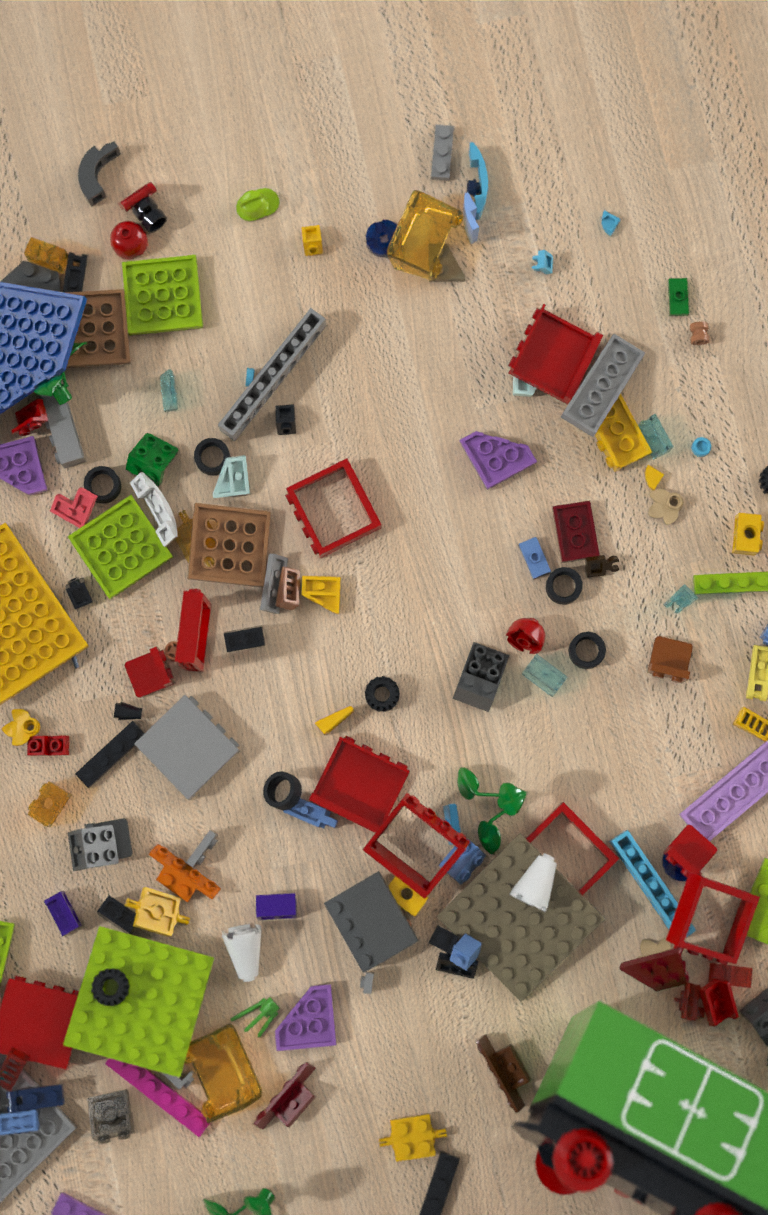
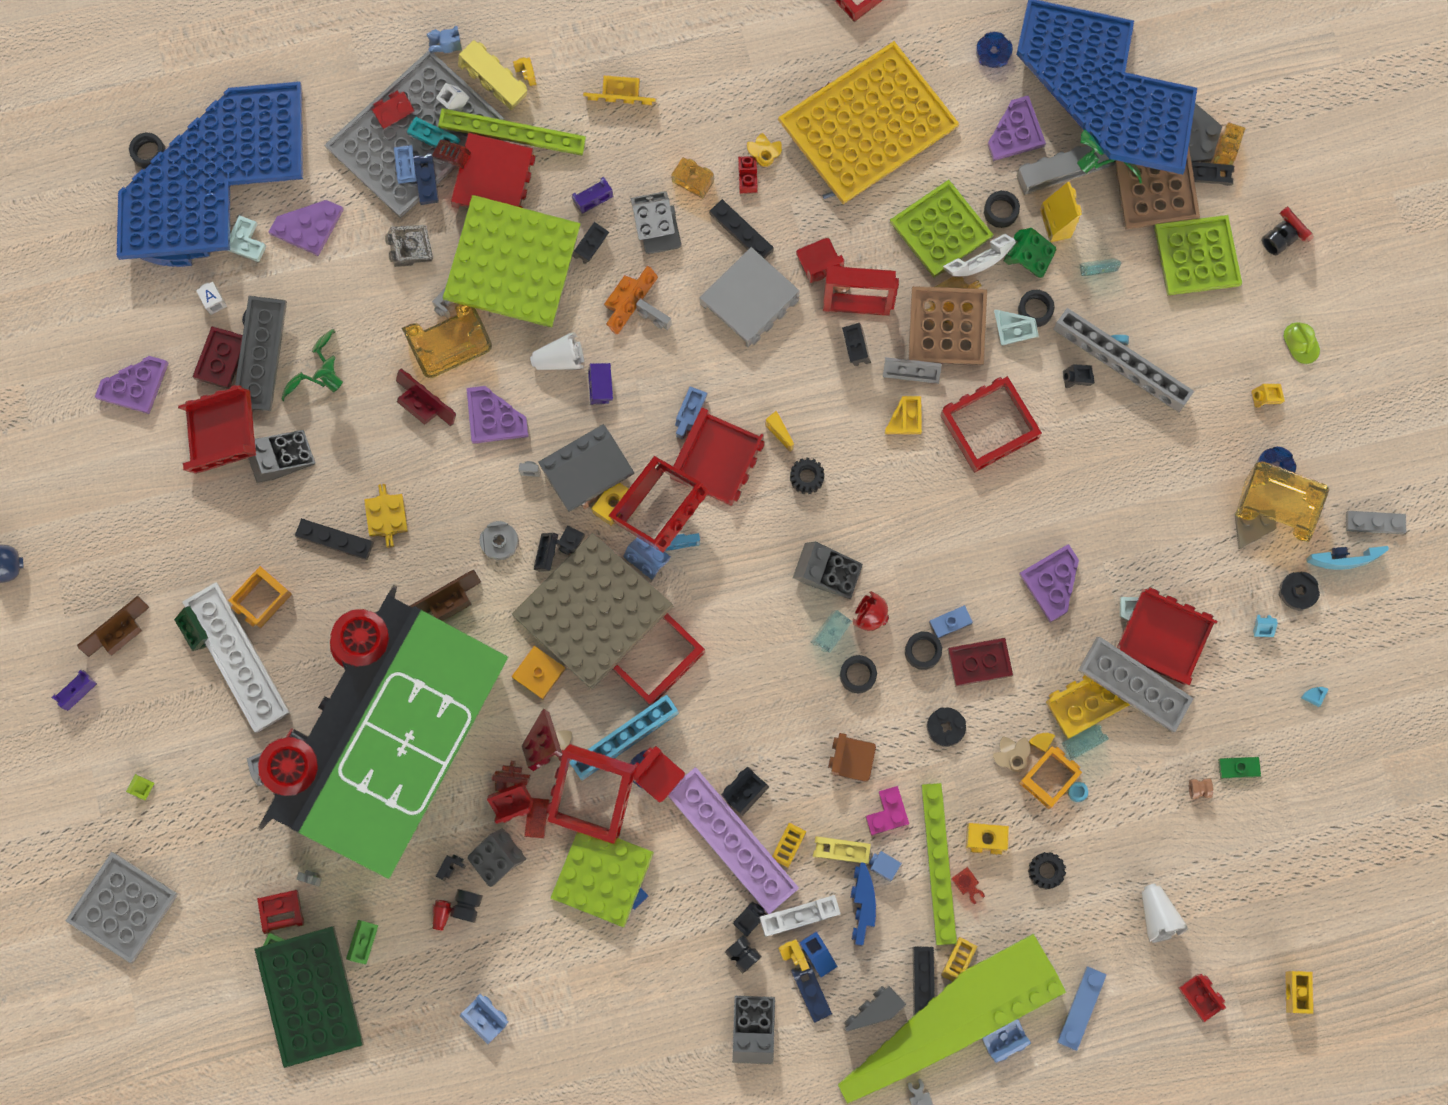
camera: 90 degrees right, 5 degrees down
(30, 418) = (1062, 139): red bracket -> none
(75, 511) = (975, 186): coral plate -> none
(78, 592) = (894, 192): black bracket -> none
(89, 170) = (1320, 180): dark grey arch -> none
(114, 424) = (1061, 213): none -> yellow slope
(119, 996) = (524, 221): black tyre -> none
(127, 712) = (781, 239): black cone -> none
(128, 240) = (1252, 221): red cylinder -> none
(157, 911) = (594, 275): yellow plate -> none
(161, 1094) = (426, 291): dark pink plate -> none
(268, 1008) = (505, 380): bright green plant -> none
(270, 788) = (709, 393): black tyre -> none
(286, 600) = (893, 377): nougat slope -> none
(435, 1023) = (492, 549): none -> light grey plate
(465, 951) = (558, 556): medium blue brick -> none
(469, 216) = (1305, 546): light blue slope -> none
(508, 218) = (1310, 589): none -> black plate
(509, 800) = (702, 593): green plant -> none
(536, 883) = (623, 616): white cone -> none
(581, 973) = (538, 672): none -> light orange plate
(598, 565) = (945, 684): dark brown plate -> none
(629, 572) = (936, 732): none -> black plate
(683, 597) = (915, 765): clear light blue hinge -> none
(690, 493) = (1037, 791): none -> light orange window
(703, 765) = (744, 790): none -> black bracket
(723, 622) = (893, 814): none -> dark pink plate

